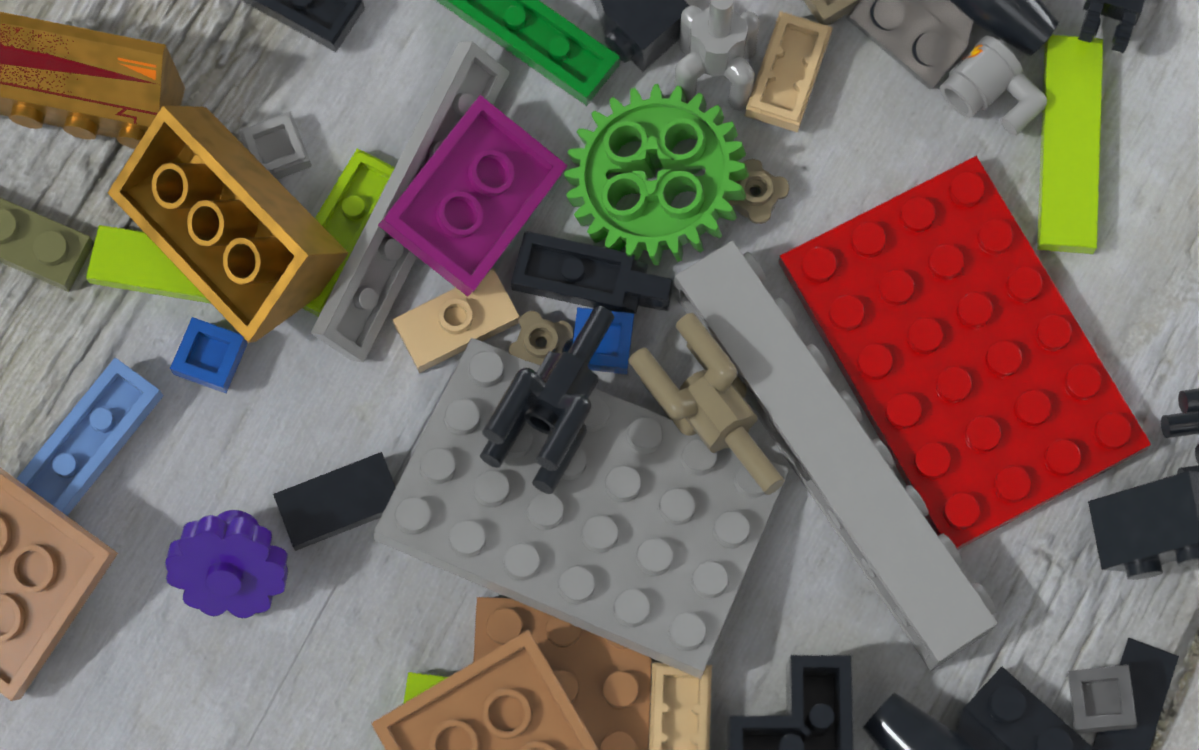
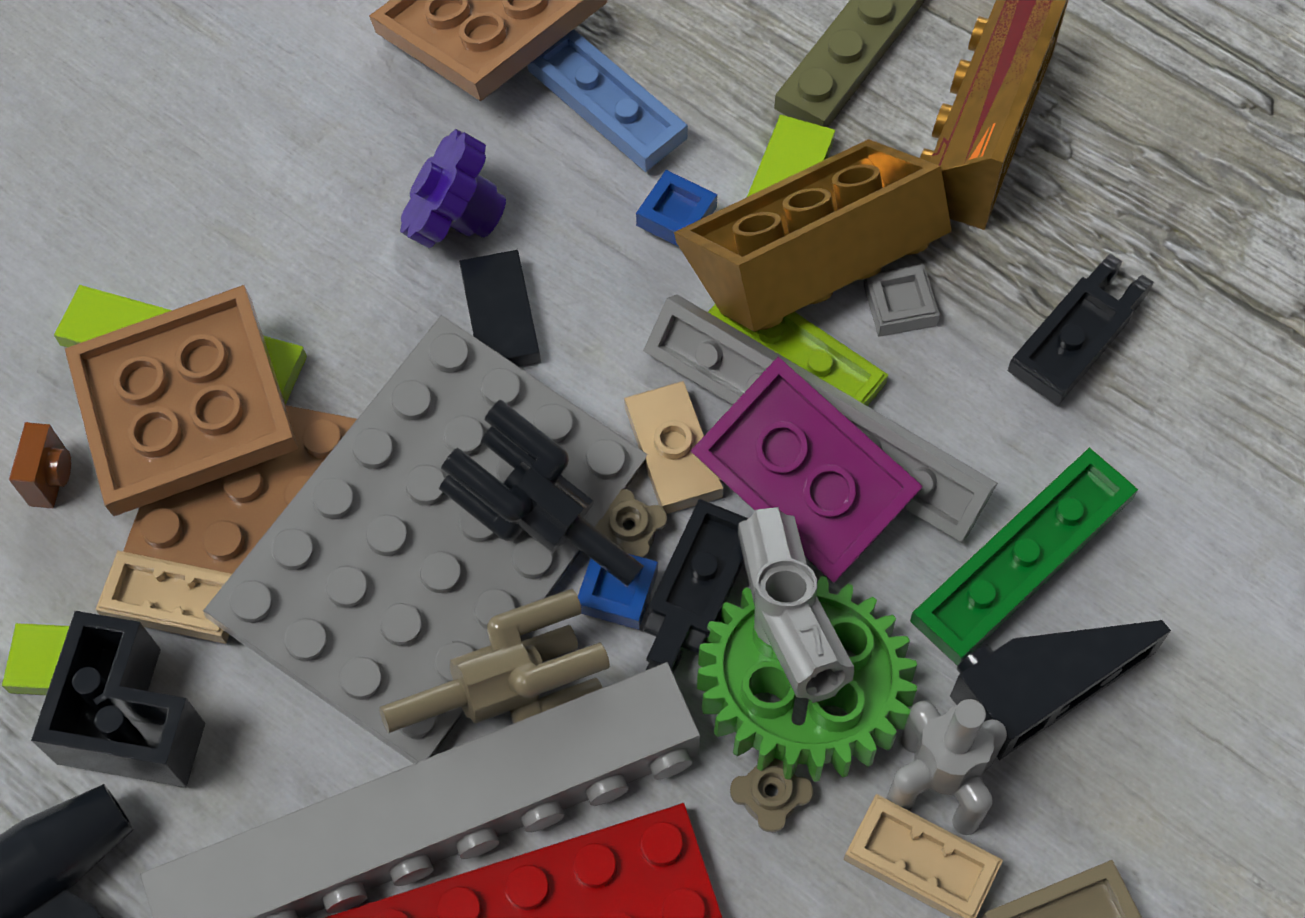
camera: 100 degrees right, 10 degrees down
(580, 195) = (788, 608): none -> light grey piece

